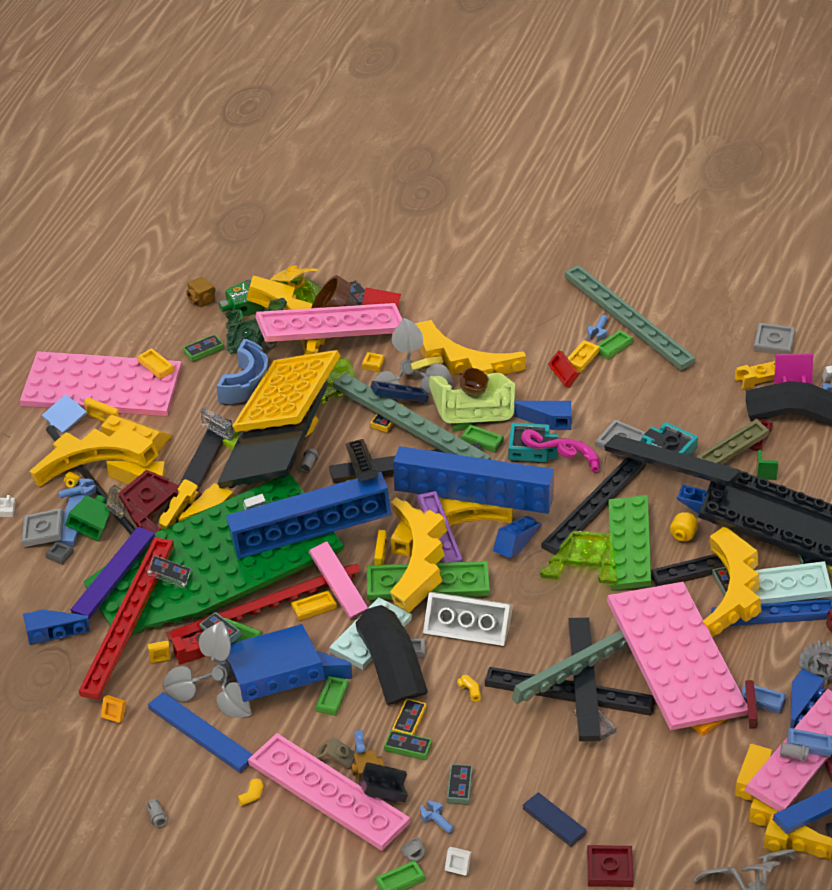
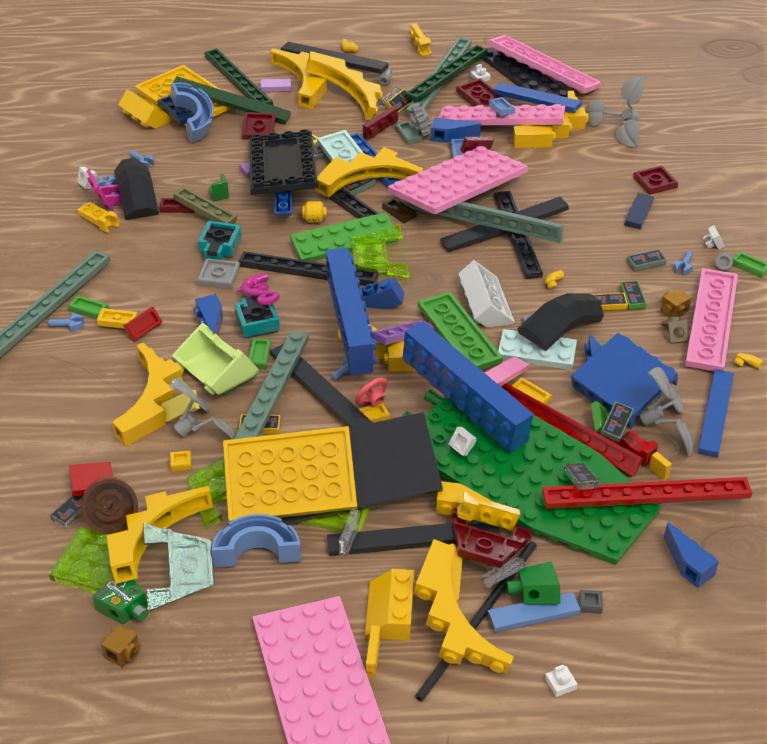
camera: 115 degrees left, 0 degrees up
(42, 527) = (571, 626): light grey tile -> none
(64, 414) = (392, 688): light blue piece -> none
(71, 479) = (490, 627): yellow arm -> none
(85, 487) = (501, 613): medium blue bar -> none
(113, 572) = (601, 528): dark purple tile -> none
(113, 708) = (741, 470): light orange tile -> none
(155, 363) = (274, 628): yellow tile -> none
(203, 348) = (216, 609): tile -> none
(291, 273) = (77, 551): yellow shield -> none
(328, 322) = (160, 485): bright pink plate -> none
(359, 741) = (653, 316): medium blue bar -> none
(361, 460) = (372, 376): black tile -> none
(384, 782) = (690, 284): black bracket -> none
(399, 391) = (231, 413): dark blue tile -> none
(422, 572) = (472, 319): yellow arch -> none
(473, 382) = (197, 367): reddish brown hair -> none
(673, 460) = (255, 217): black tile -> none
(774, 339) = (45, 220): light grey tile -> none
(794, 751) = (518, 103): light grey pin -> none

